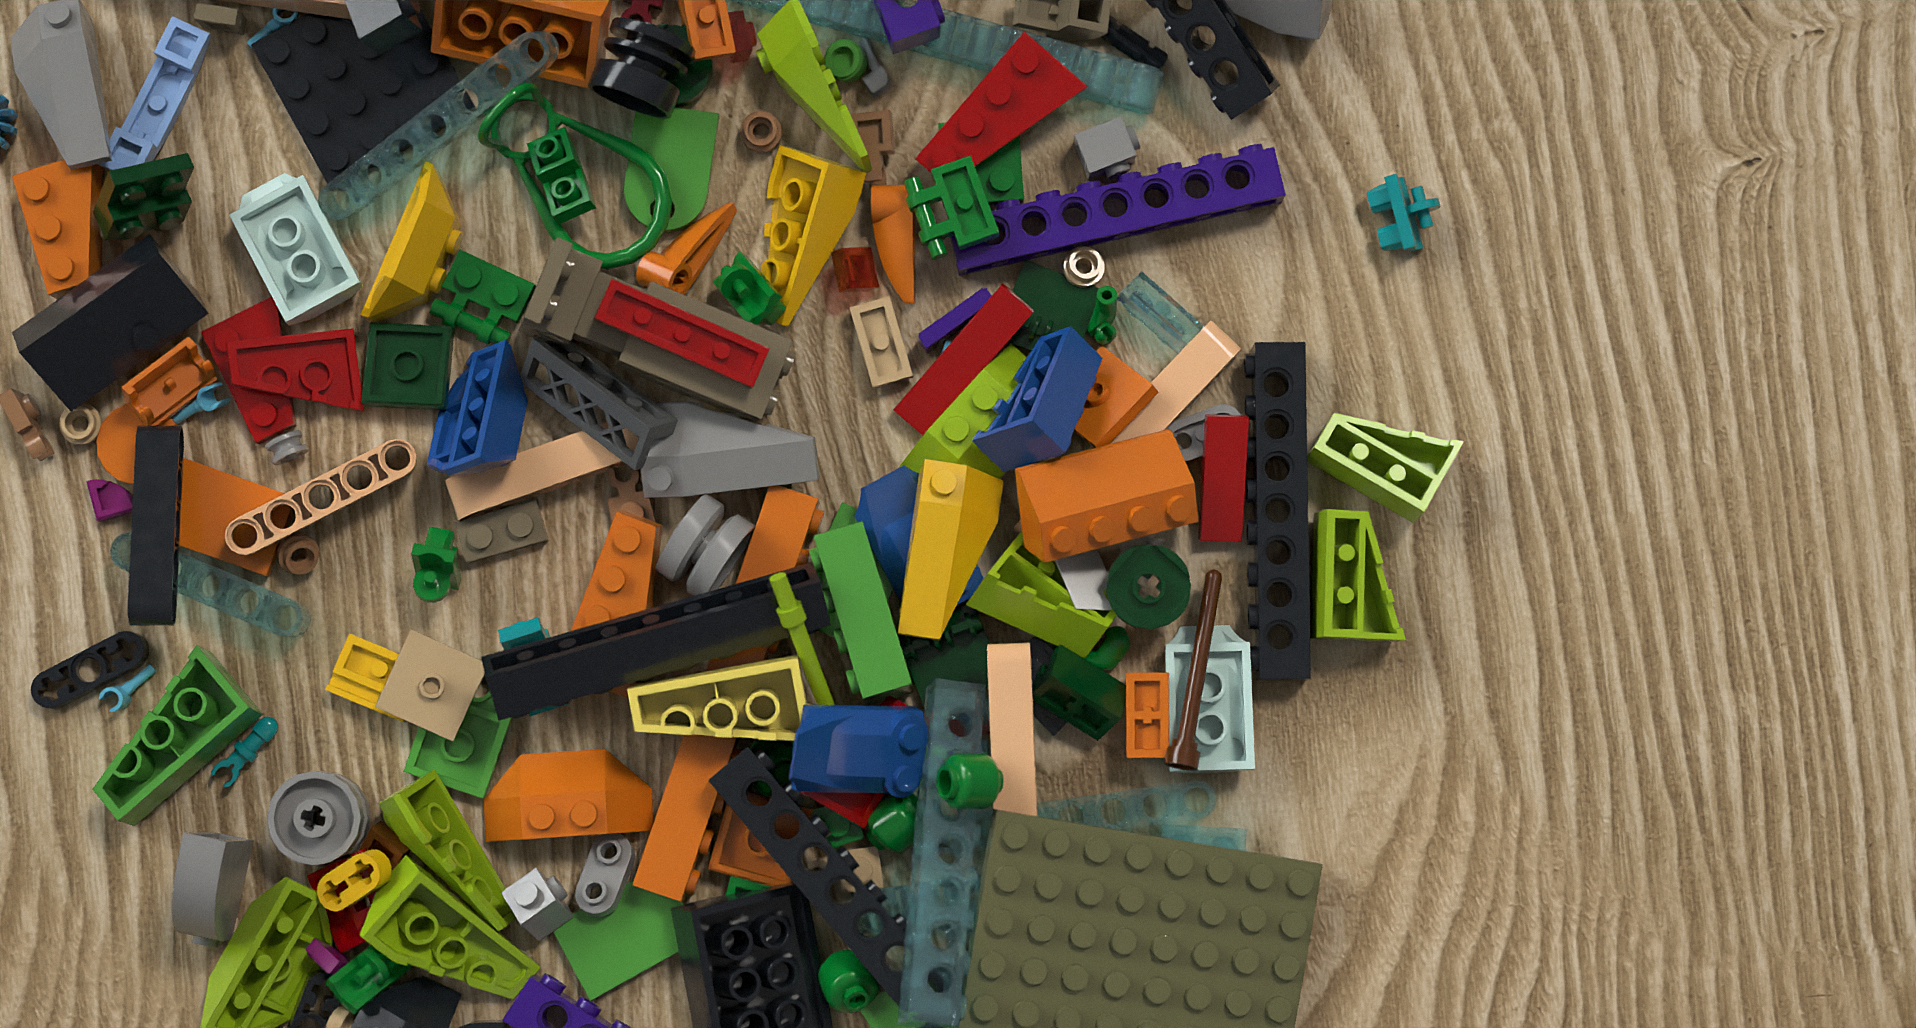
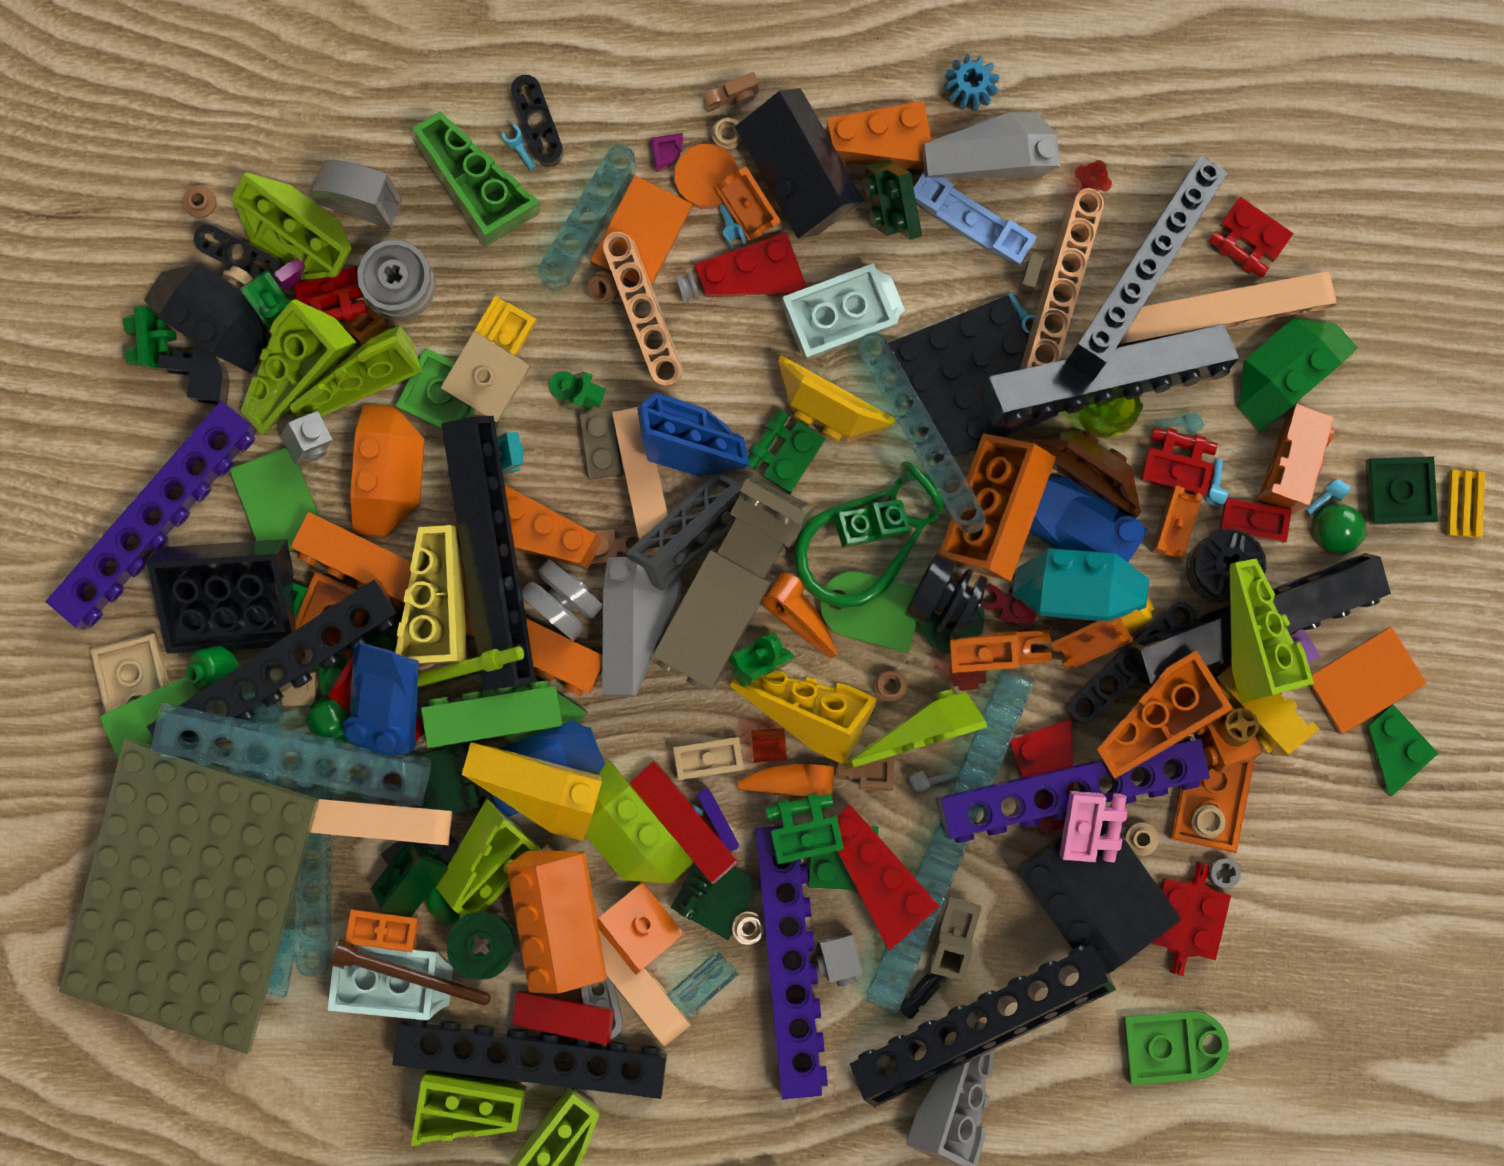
camera: 95 degrees right, 0 degrees up
(155, 526) = (635, 180): black beam -> none
(246, 750) = (459, 231): teal piece -> none
(300, 366) = (747, 309): red wing -> none
(350, 873) = (335, 302): yellow beam -> none
(408, 366) = (738, 387): dark green plate -> none
(606, 873) = (322, 493): light grey plate -> none
(681, 333) = (723, 601): red plate -> none
(846, 60) = (938, 759): bright green tile -> none
(969, 781) = (341, 783): green head -> none
(1044, 404) = (635, 882): blue wedge -> none
(1085, 579) = (491, 894): white sticker -> none
(1103, 316) = (706, 938): green arm -> none

